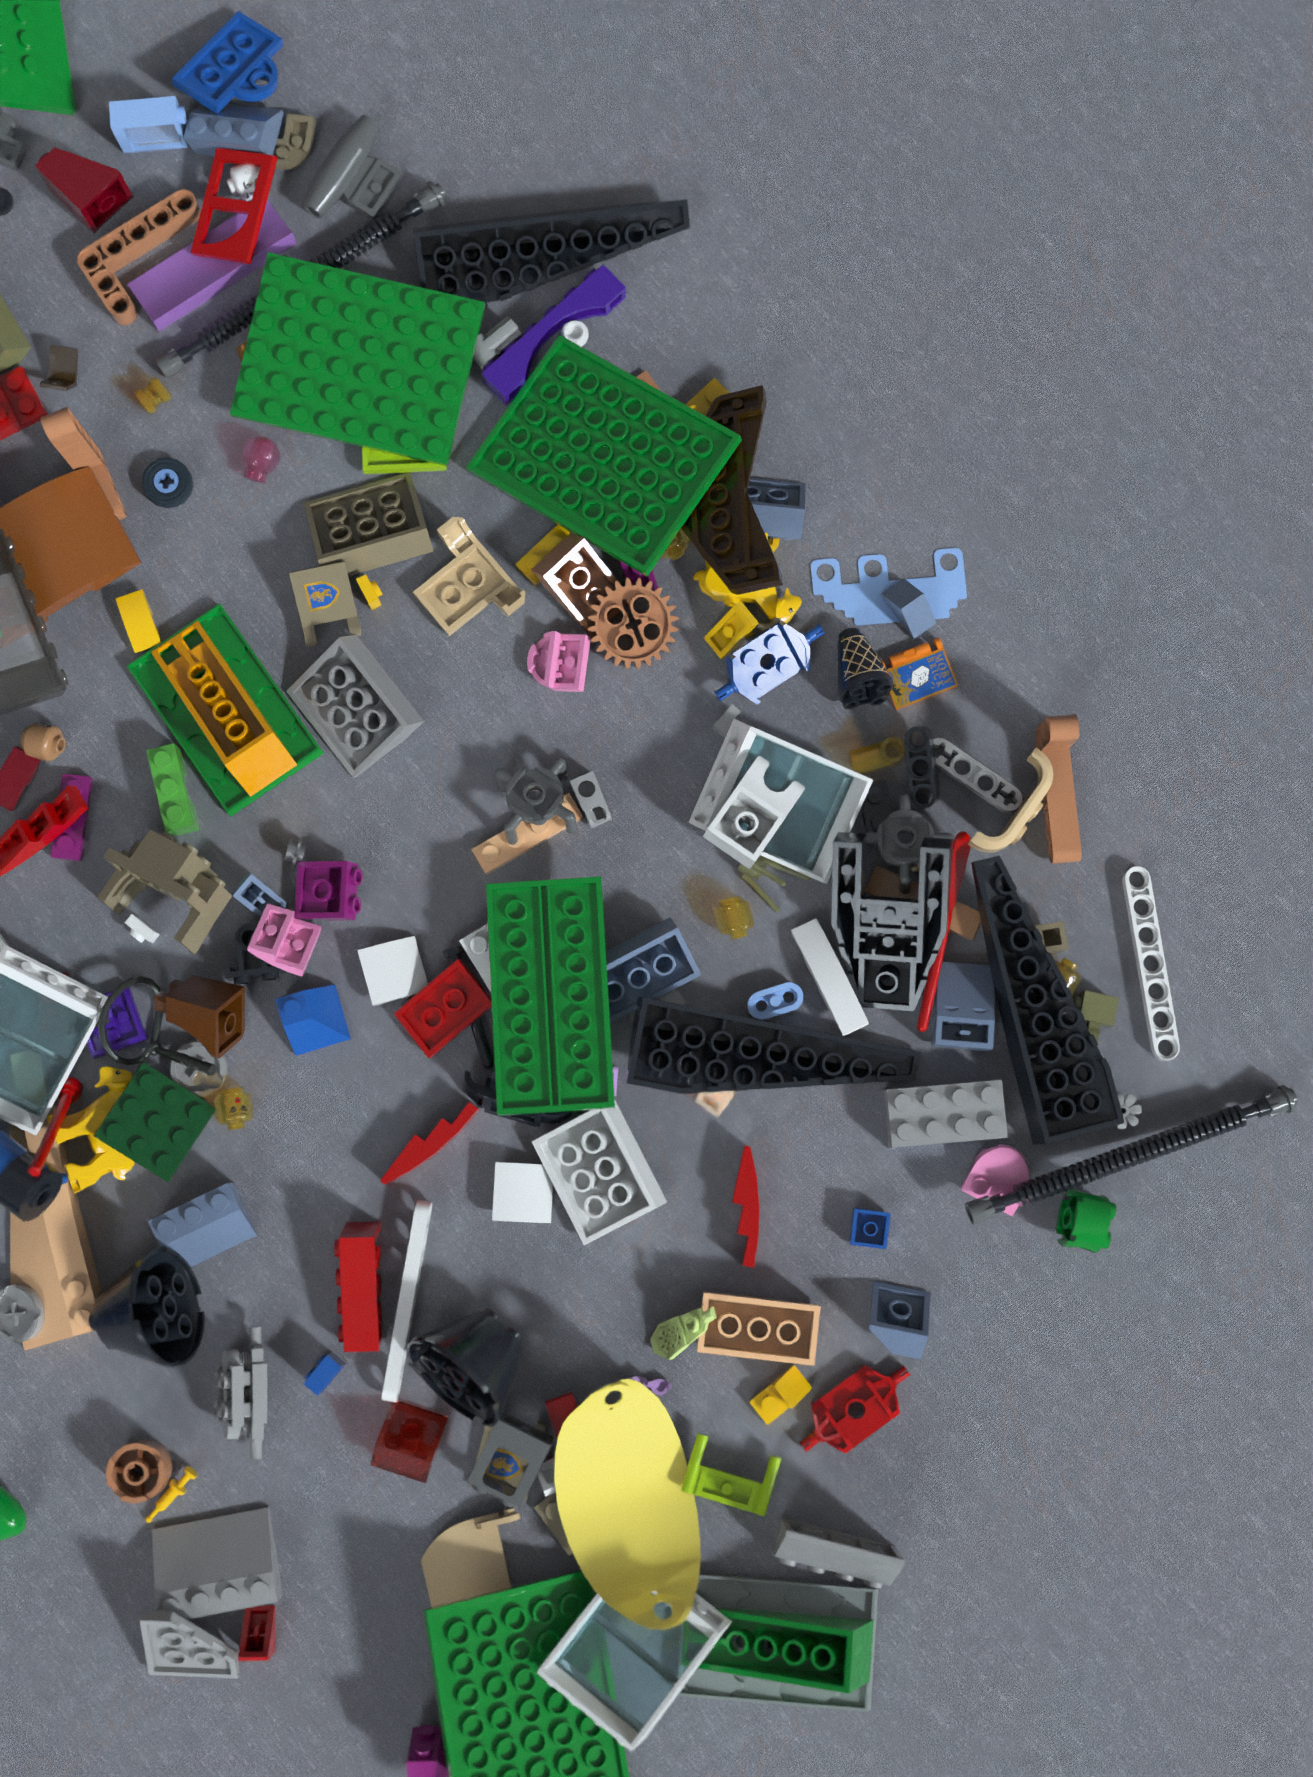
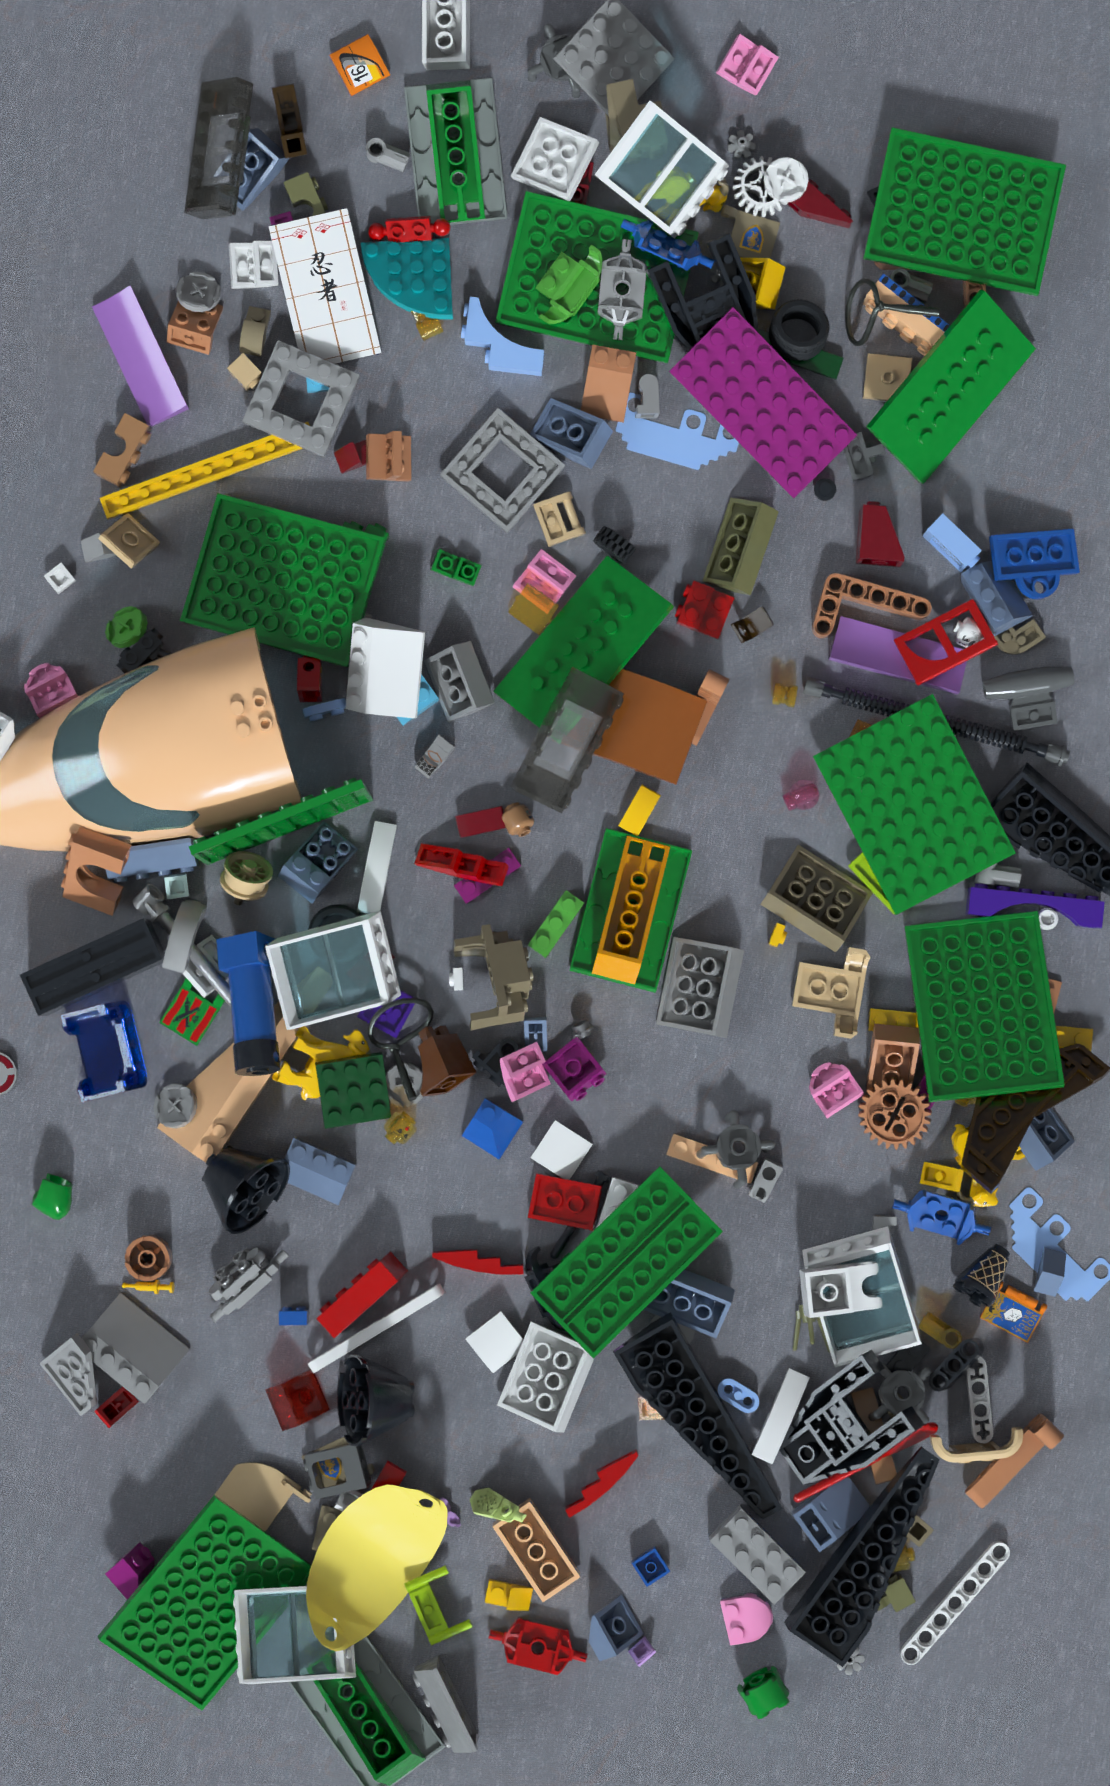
camera: 50 degrees right, 5 degrees up
(69, 1094) = (325, 1025): red piece -> none
(158, 472) = (737, 762): black bush -> none
(322, 597) = (749, 912): dark tan flag -> none
(734, 917) = (767, 1328): clear yellow head -> none
(946, 1309) = (642, 1651): none -> lavender slope
(1131, 1155) = (827, 1687): black hose -> none

